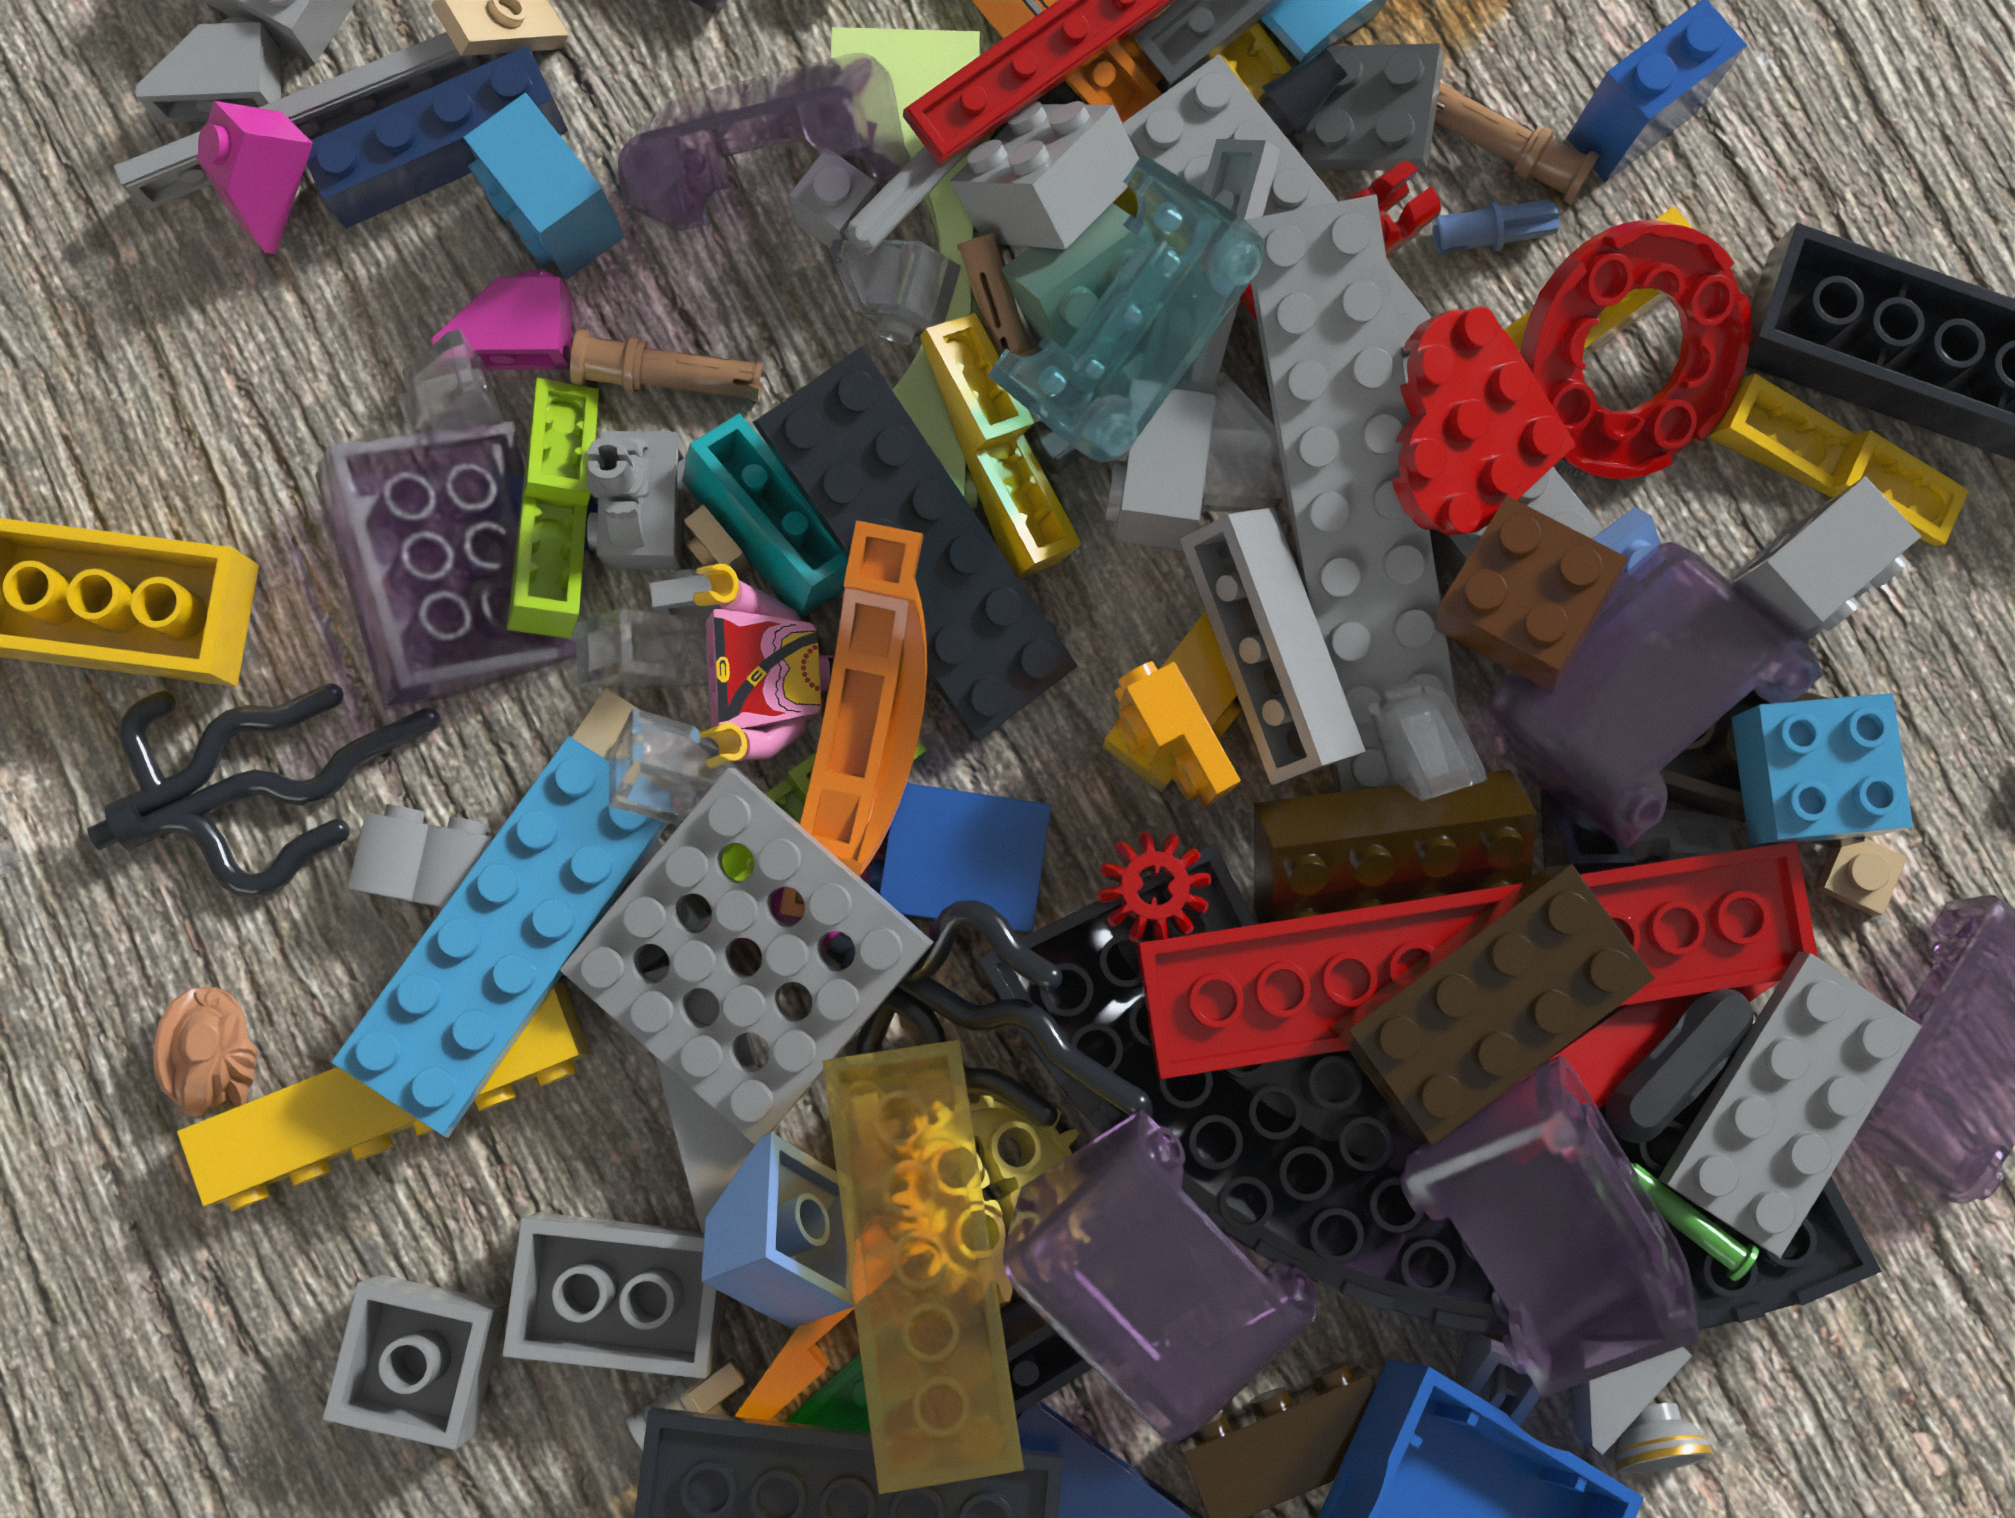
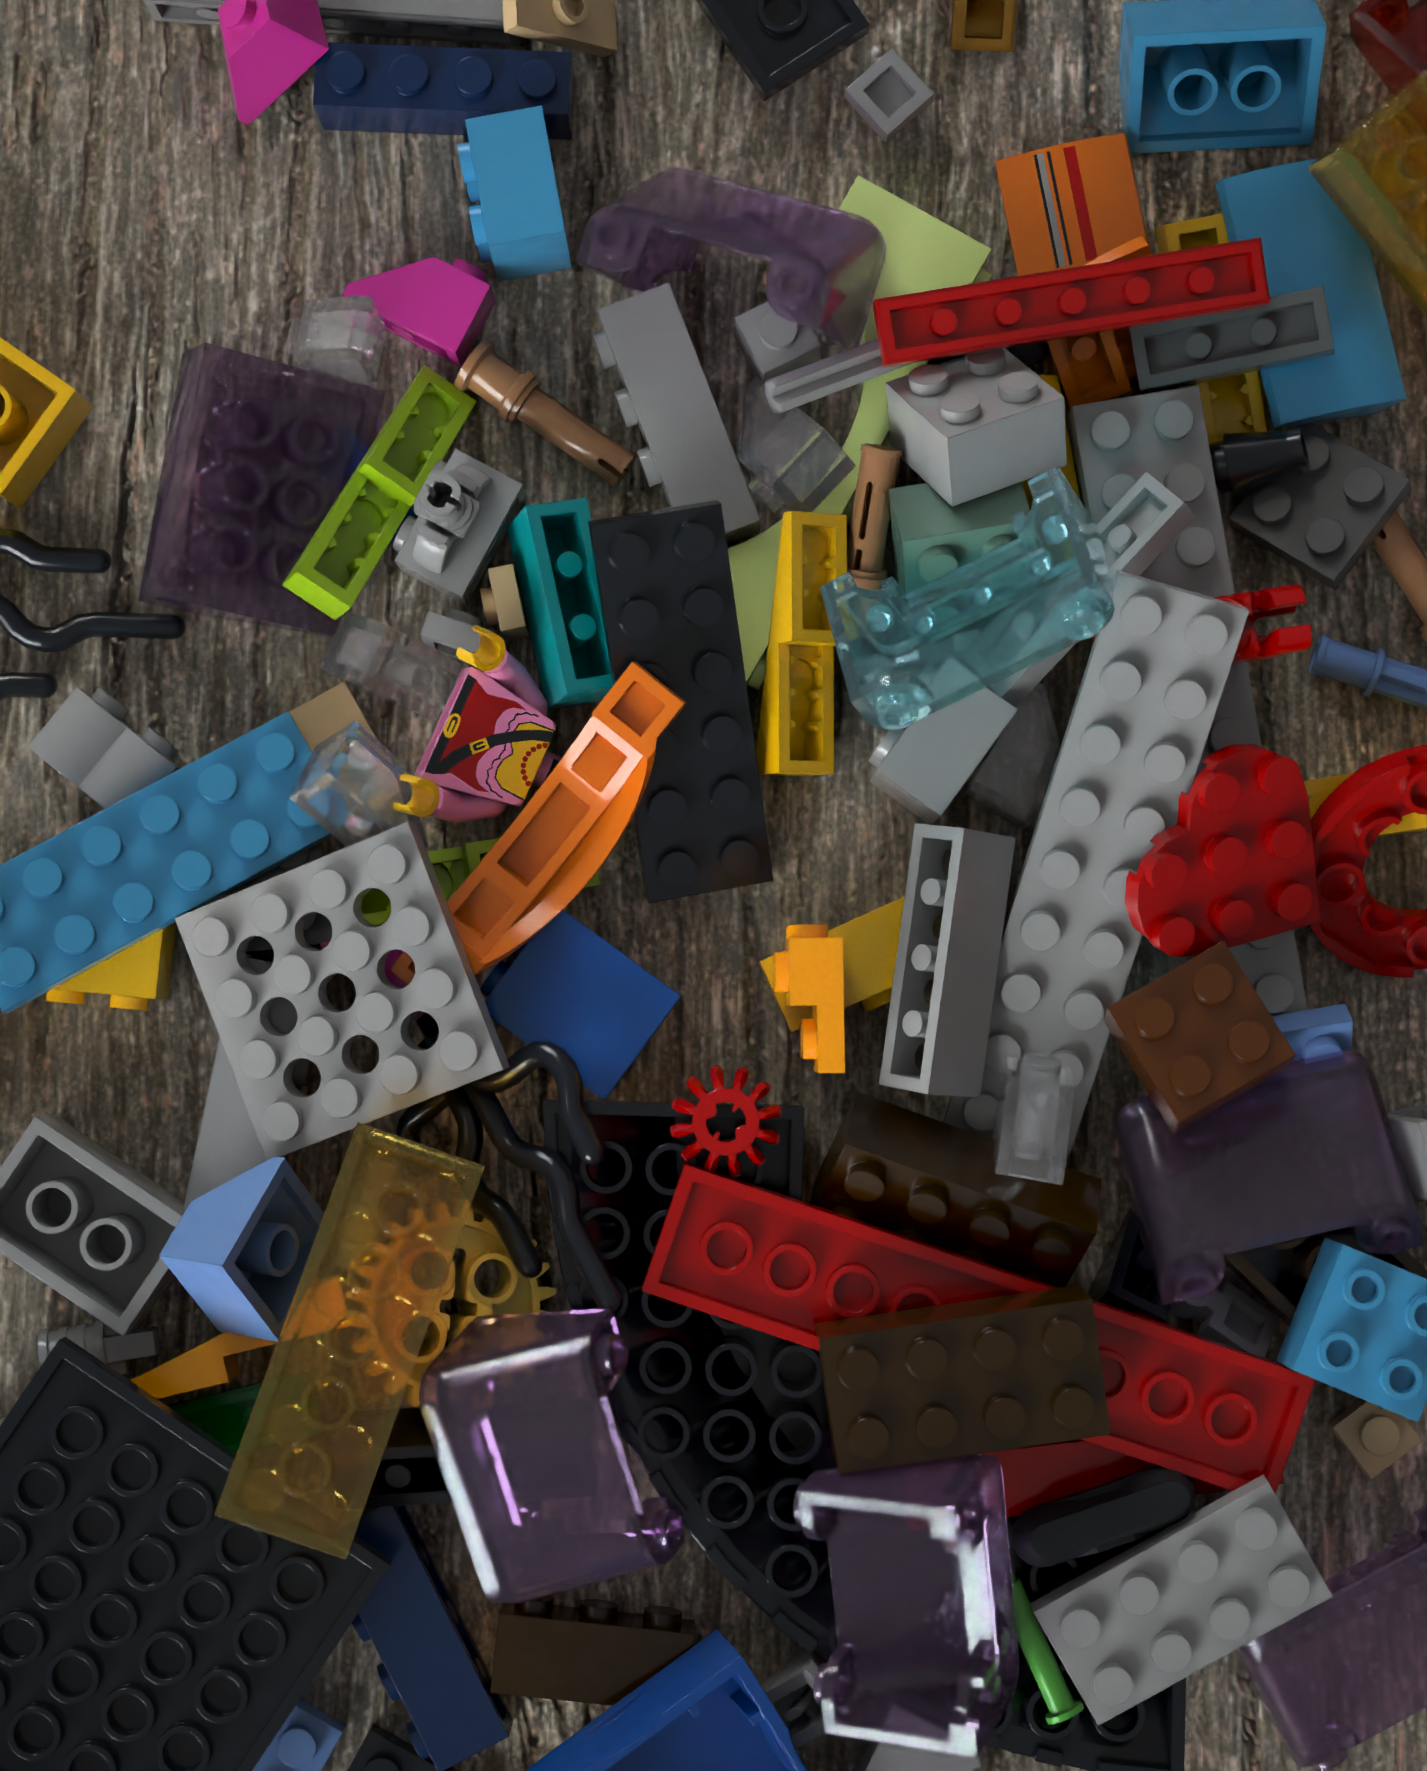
camera: 30 degrees right, 5 degrees up
(770, 298) = (673, 407): none -> light grey brick

